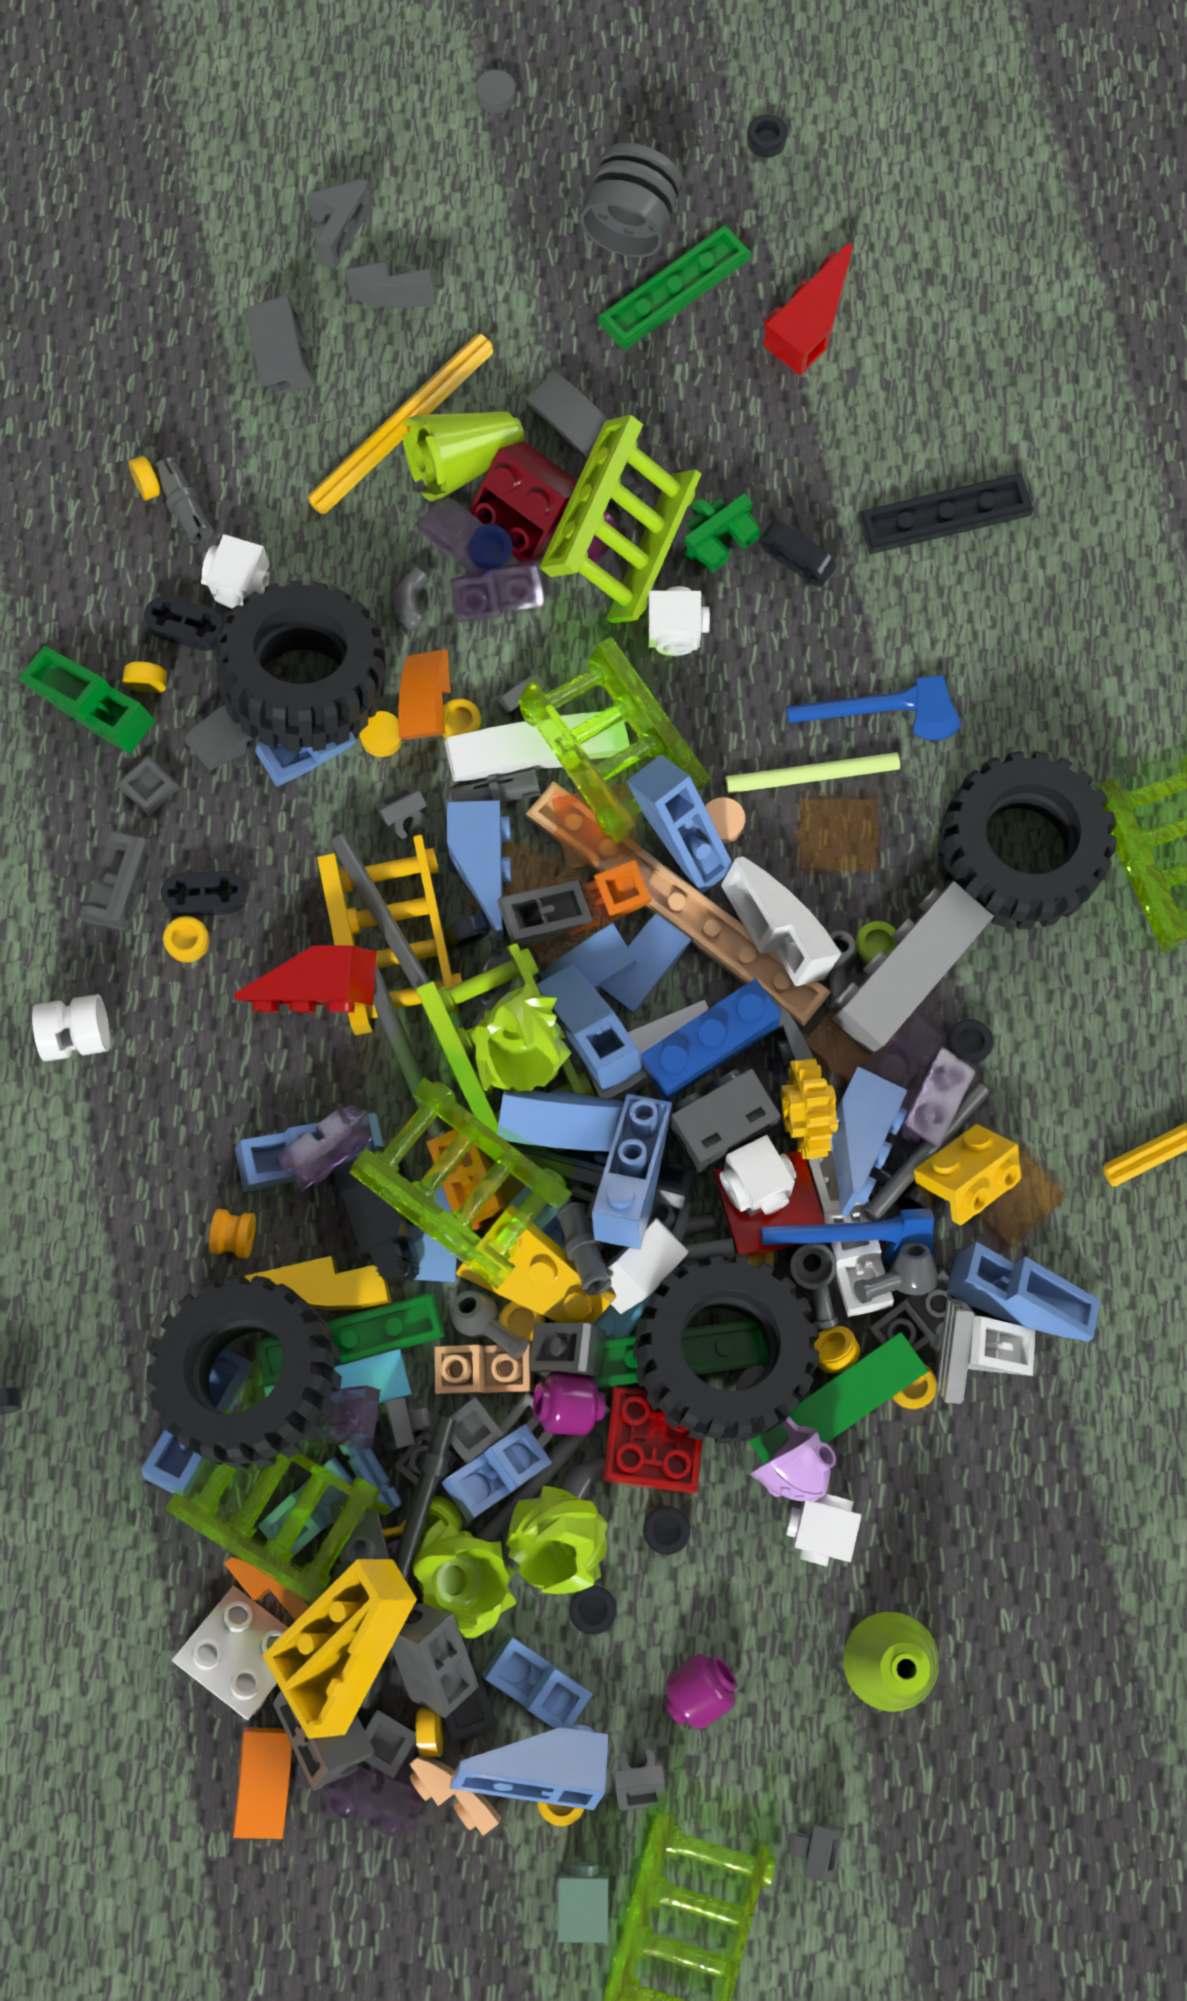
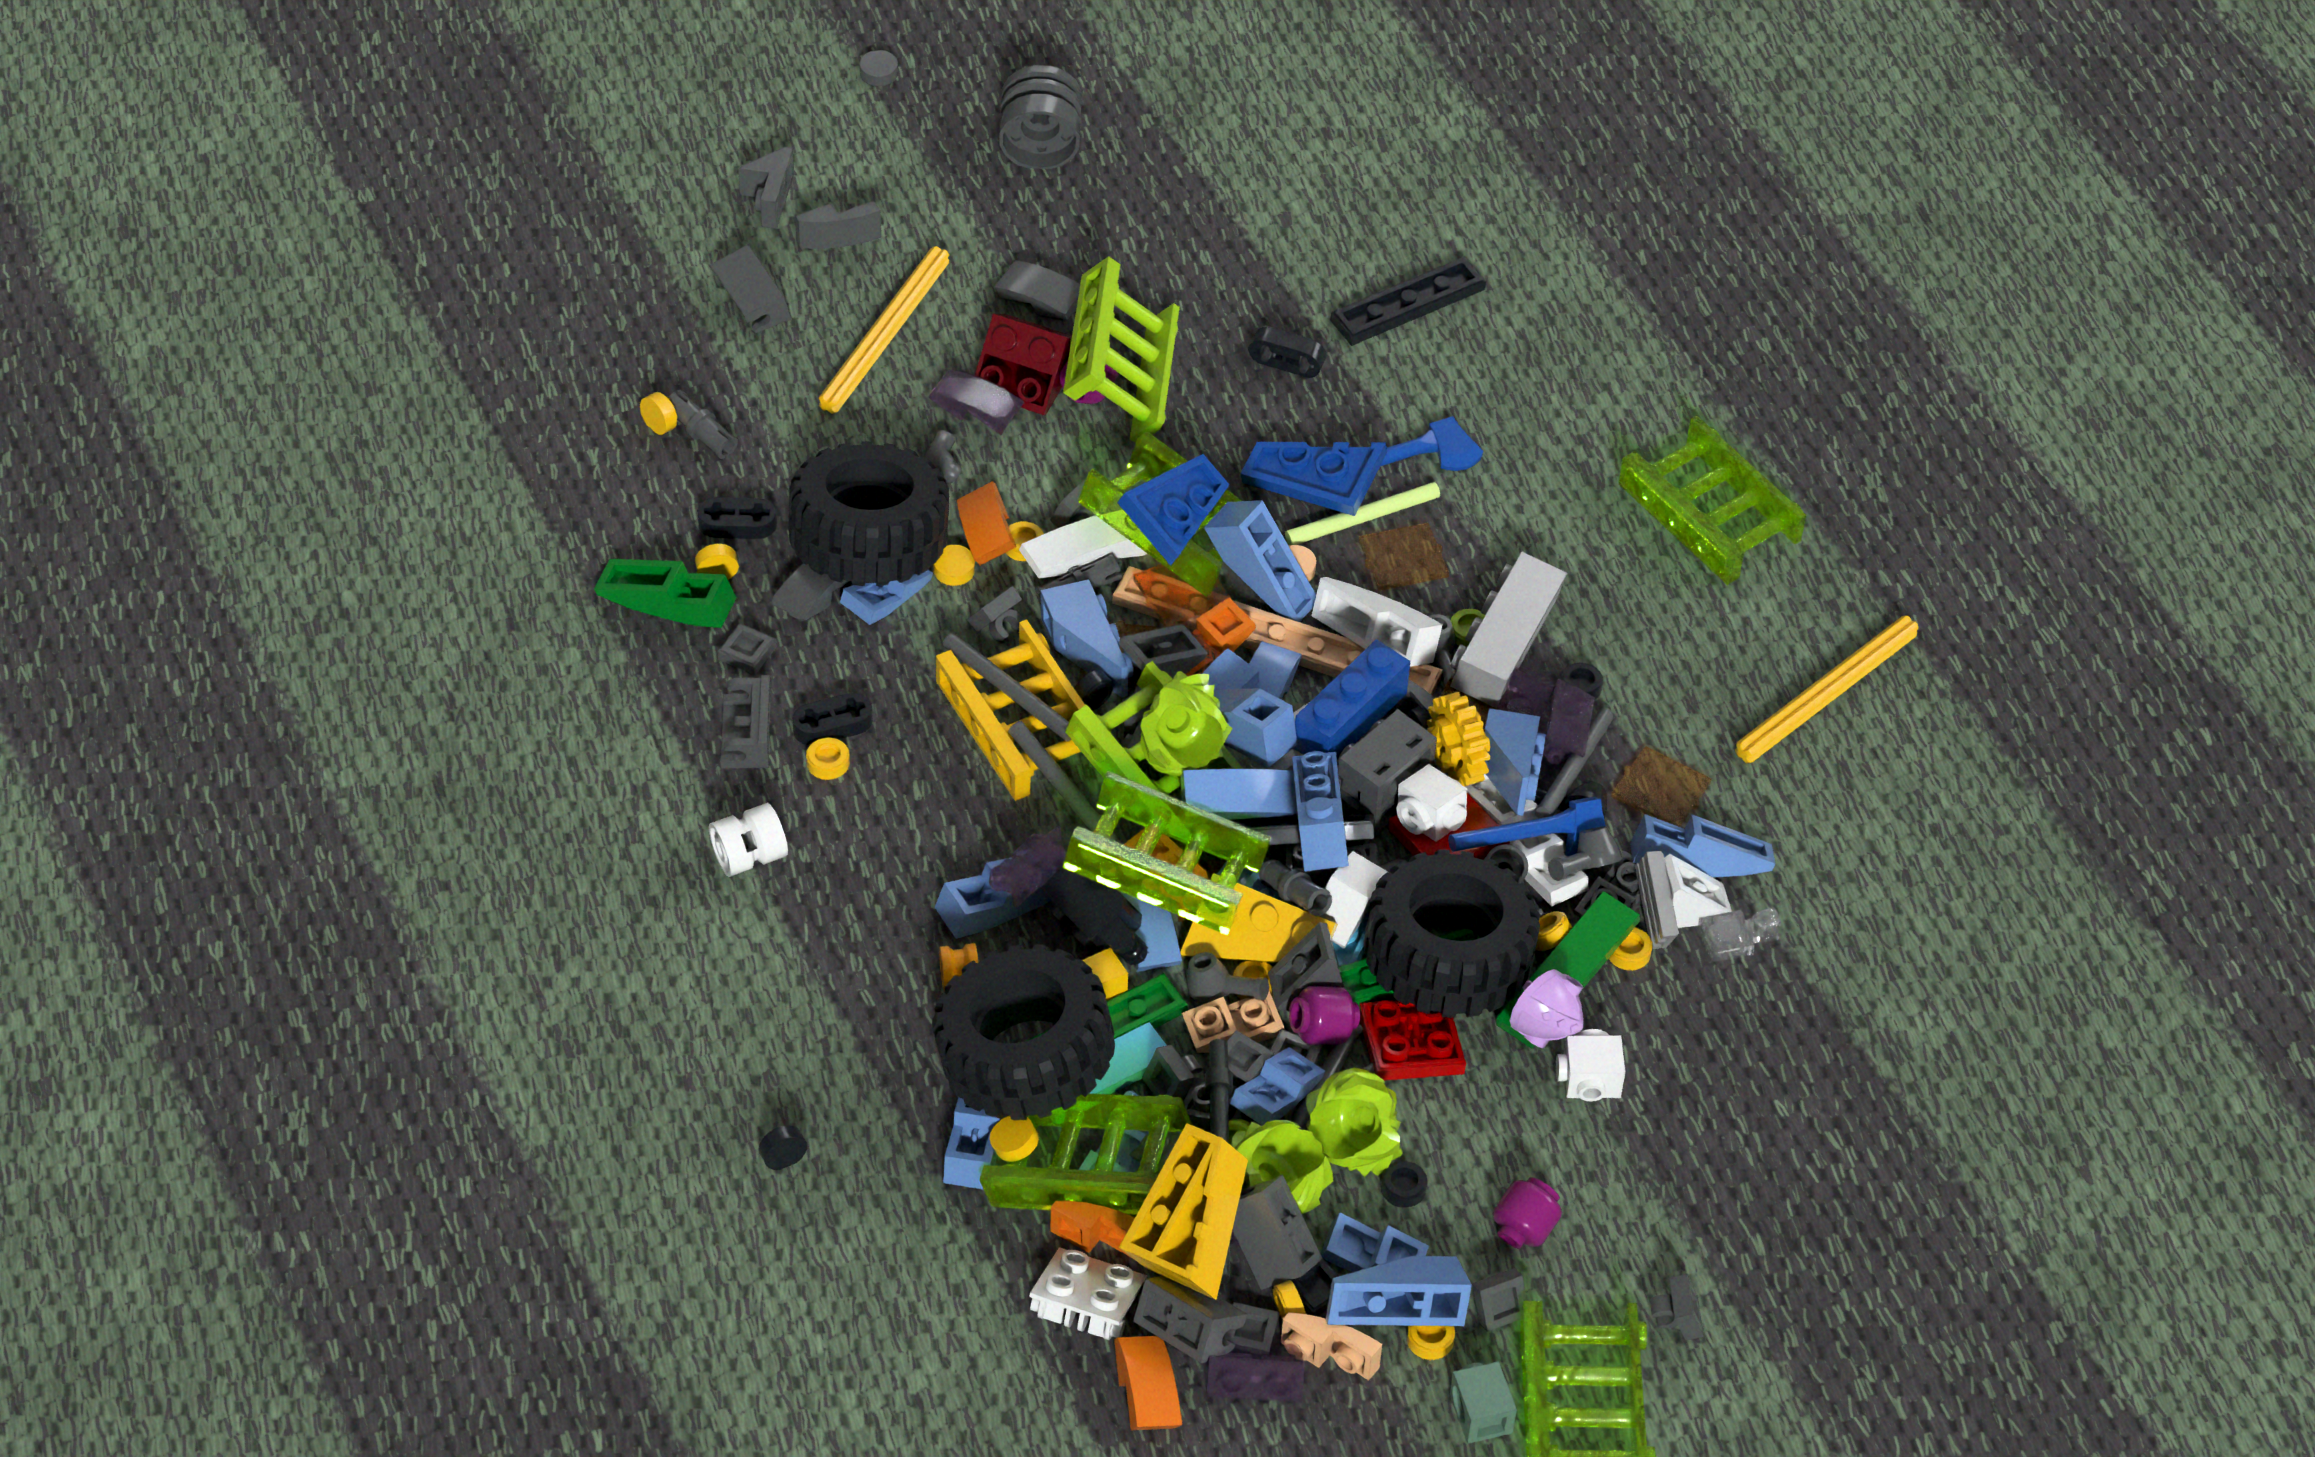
camera: 20 degrees left, 25 degrees down
(210, 1477) = (1013, 1139): none -> yellow tile
(235, 570) = (772, 464): white brick -> none
(318, 976) = (974, 739): red slope -> none
(352, 1418) = (1133, 1055): slope -> none
(456, 447) = (943, 331): lime cone -> none
(489, 546) = (1006, 397): clear blue tile -> none
(498, 590) = (1025, 432): clear purple slope -> none
(602, 748) = (1175, 504): none -> blue wing
(666, 1530) = (1448, 1108): black tile -> none
(674, 287) = (1098, 182): green tile -> none
(676, 620) = (1196, 422): white brick -> none
(714, 524) = (1205, 344): green hips -> none
(767, 136) = (1140, 56): black tile -> none
(779, 718) = (1318, 475): none -> blue wing
(805, 324) = (1230, 182): red slope -> none
(873, 1658) = (1693, 1146): lime cone -> none
(971, 1171) = (1625, 763): yellow bracket -> none
(1021, 1398) = (1734, 937): none -> clear plate
(1045, 789) = (1584, 476): black tyre -> none

